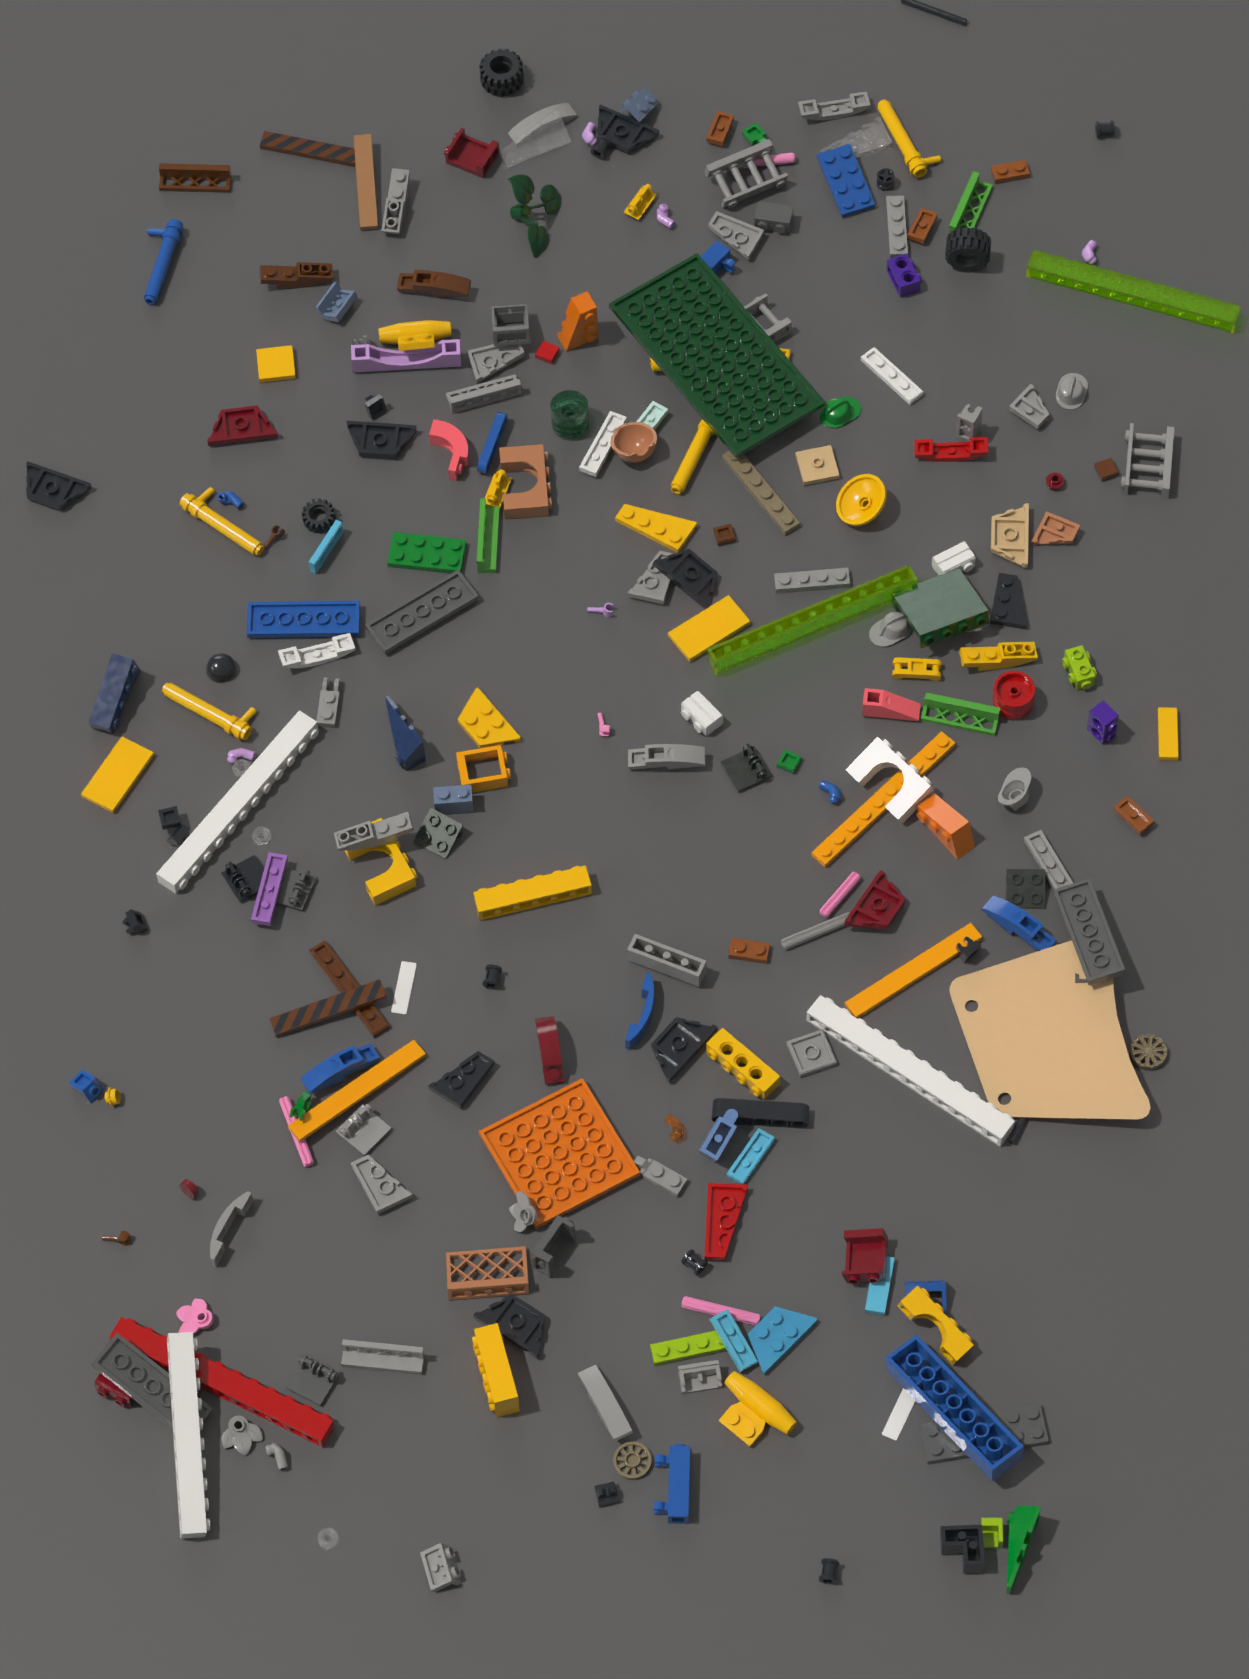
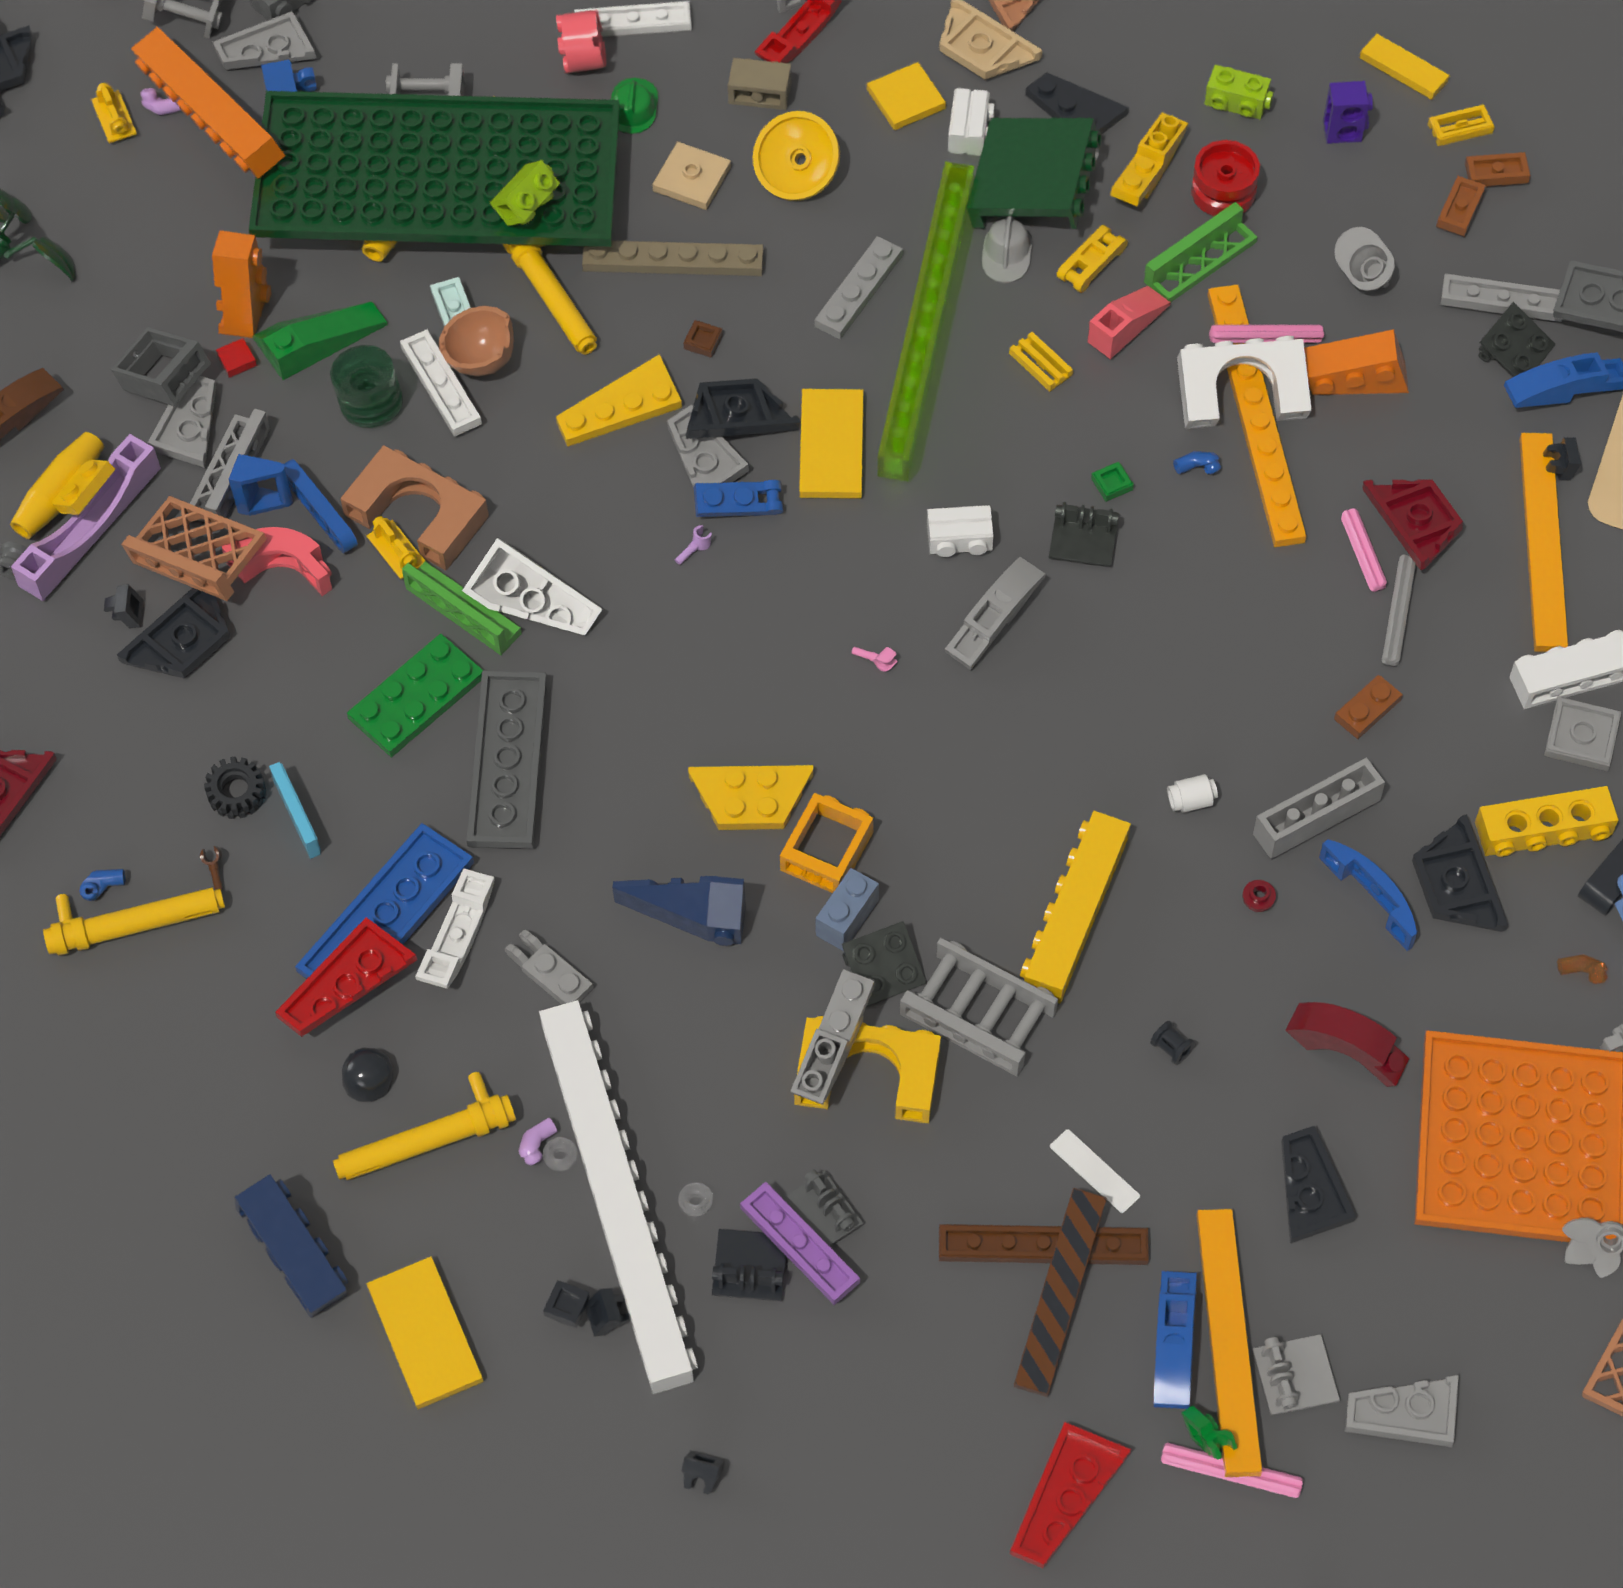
camera: 55 degrees left, 0 degrees up
(235, 1070) = (1068, 1487): none -> red wing
(254, 623) = (350, 972): none -> red wing
(412, 421) = (181, 564): none -> nougat fence
(432, 895) = (978, 1038): none -> light grey fence
(477, 410) = (251, 498): none -> blue tile
(517, 556) = (524, 589): none -> white wedge
(582, 373) = (311, 338): none -> green wedge
(602, 971) = (1255, 903): none -> dark red plate
(634, 903) = (1192, 793): none -> white brick
(639, 608) = (737, 498): none -> blue plate
(670, 234) = (207, 103): none -> orange brick
(725, 399) = (525, 192): none -> lime brick
(837, 673) = (1044, 357): none -> yellow tile
(851, 362) = (581, 41): none -> coral brick
(897, 455) = (759, 83): none -> dark tan brick
(931, 772) = (1268, 333): none -> bright pink axle
(948, 524) = (906, 96): none -> yellow tile
(1094, 812) = (1460, 205): none -> dark orange plate
(1149, 785) = (1463, 128): none -> yellow tile

